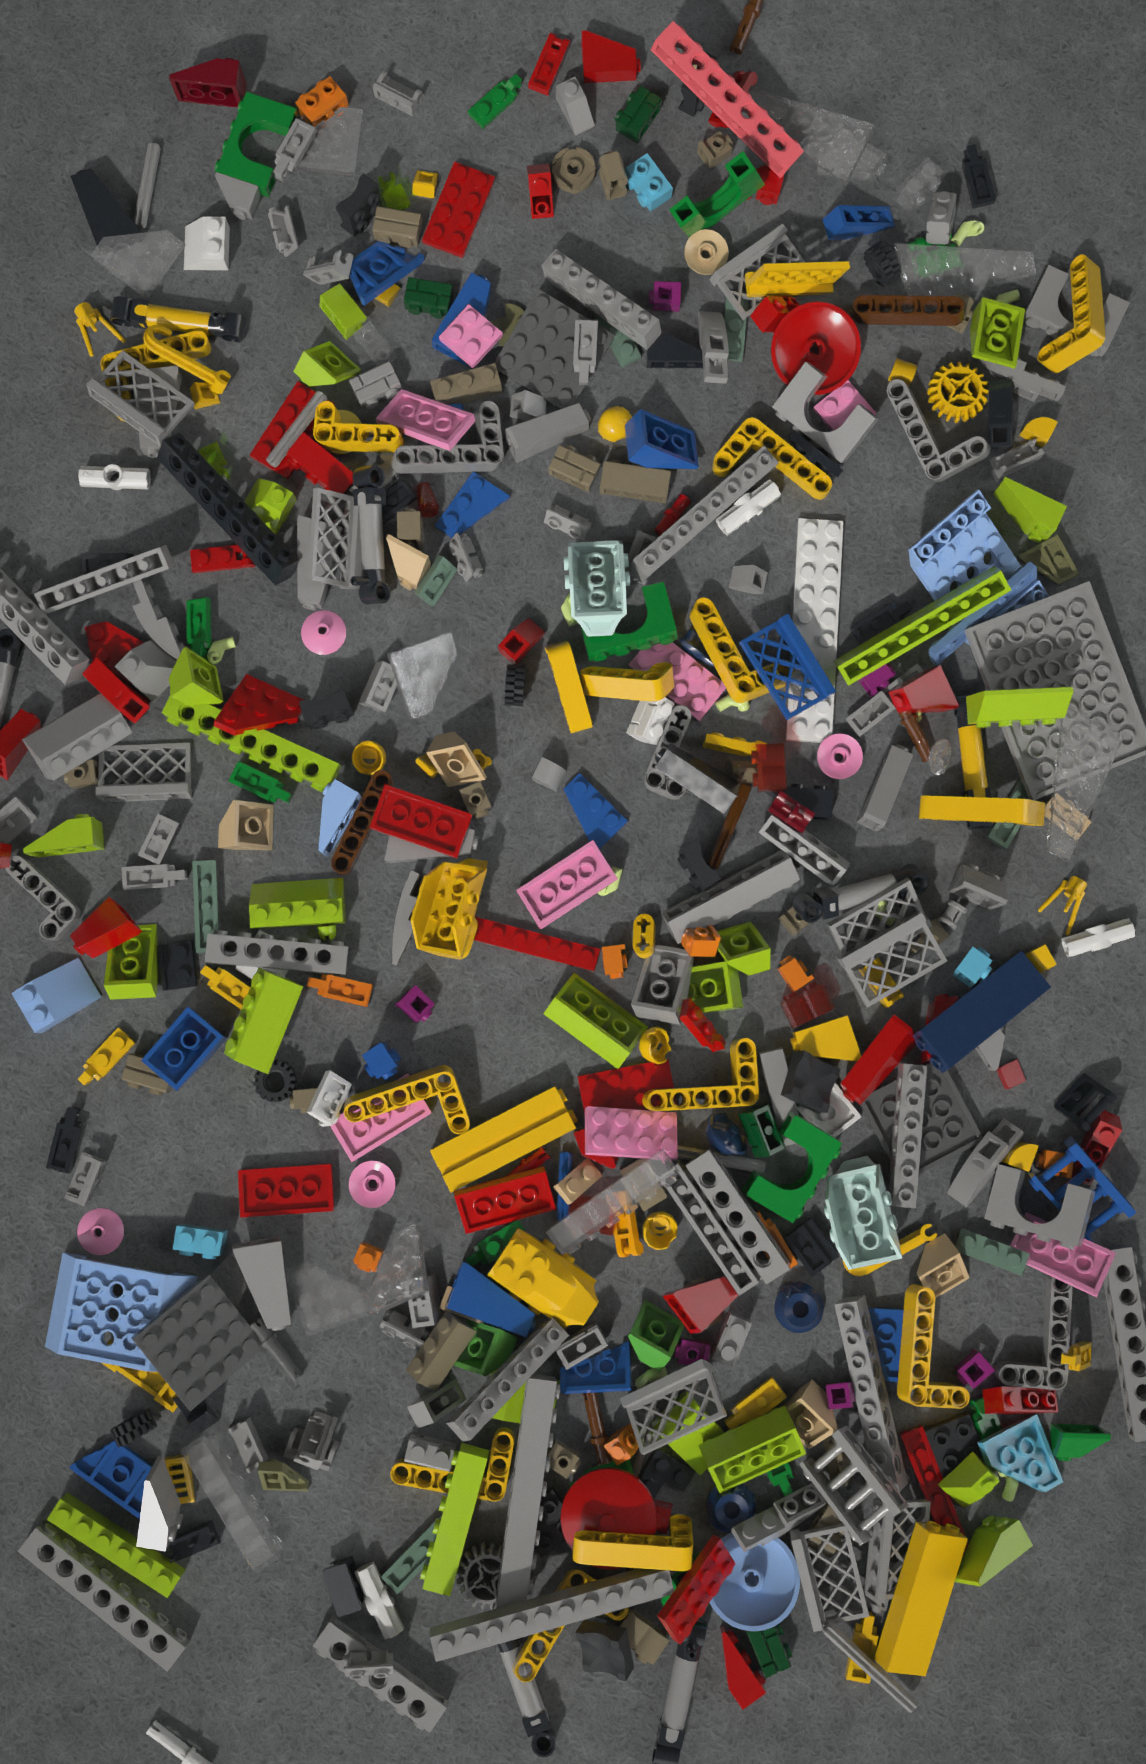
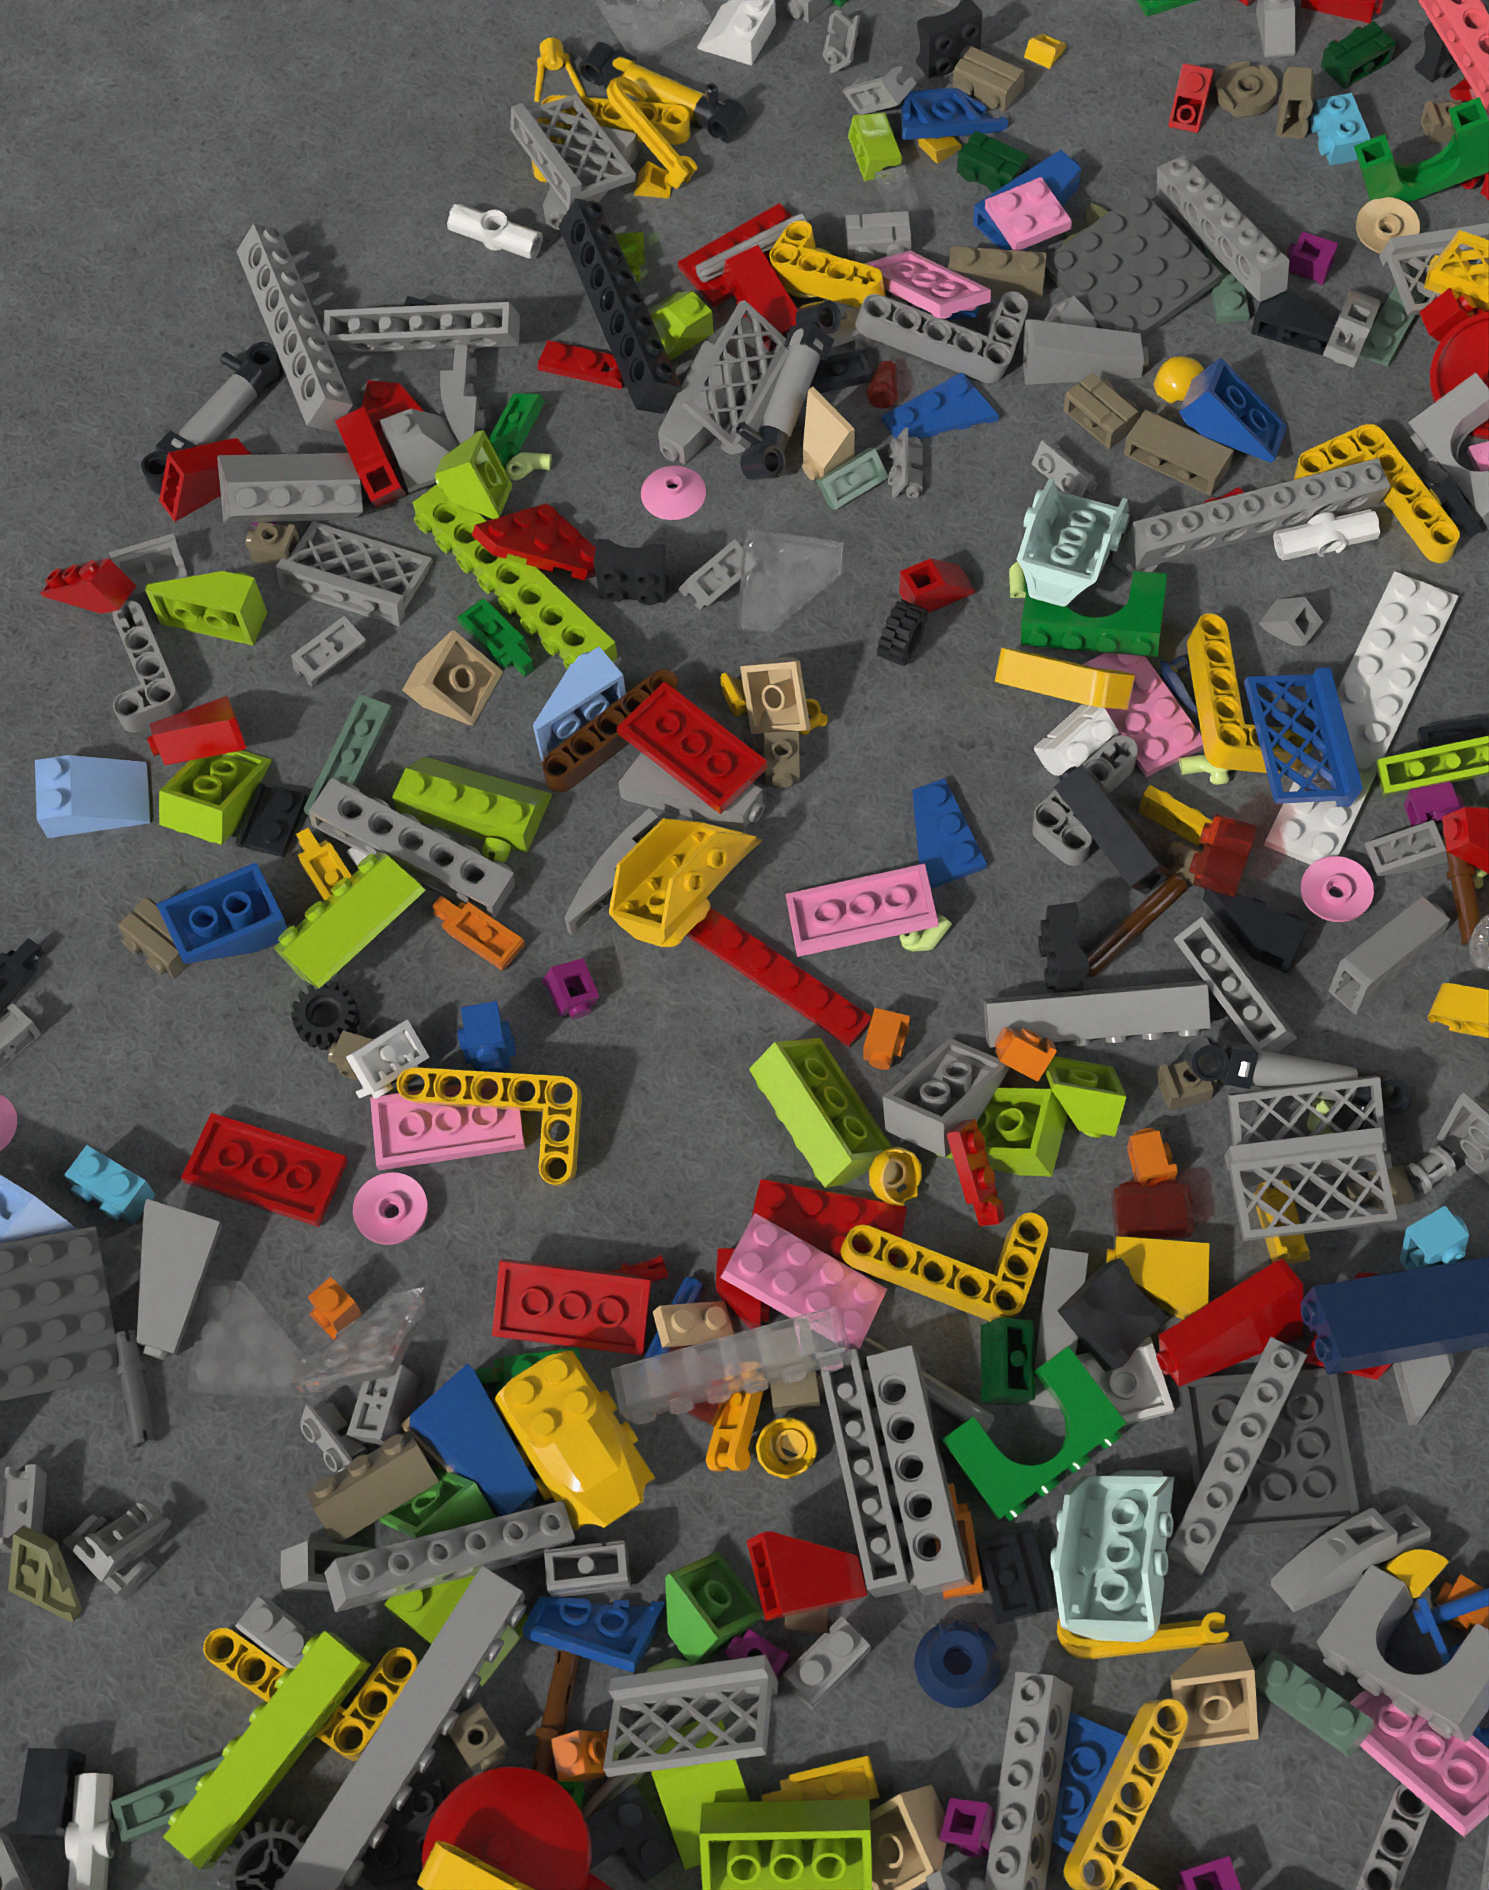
camera: 30 degrees right, 20 degrees down
(106, 1056) = (113, 898): yellow hinge -> none
(151, 876) = (296, 696): light grey hinge -> none
(325, 365) = (819, 193): lime slope -> none
(368, 750) = (663, 647): yellow hair -> none
(393, 194) = (1000, 44): clear neon green plate -> none
(410, 528) = (848, 395): dark tan brick -> none
(458, 209) = (1075, 88): red plate -> none
(504, 1138) = (613, 1219): yellow brick -> none
(549, 774) = (899, 763): light grey brick -> none
(569, 686) = (977, 661): yellow beam -> none
(585, 348) = (1174, 271): light grey hinge -> none
(649, 936) = (937, 1019): yellow beam -> none
(725, 1135) = (947, 1347): dark blue piece -> none
(790, 811) = (1232, 923): dark red hips -> none
(1011, 1074) = (1441, 1442): red slope -> none

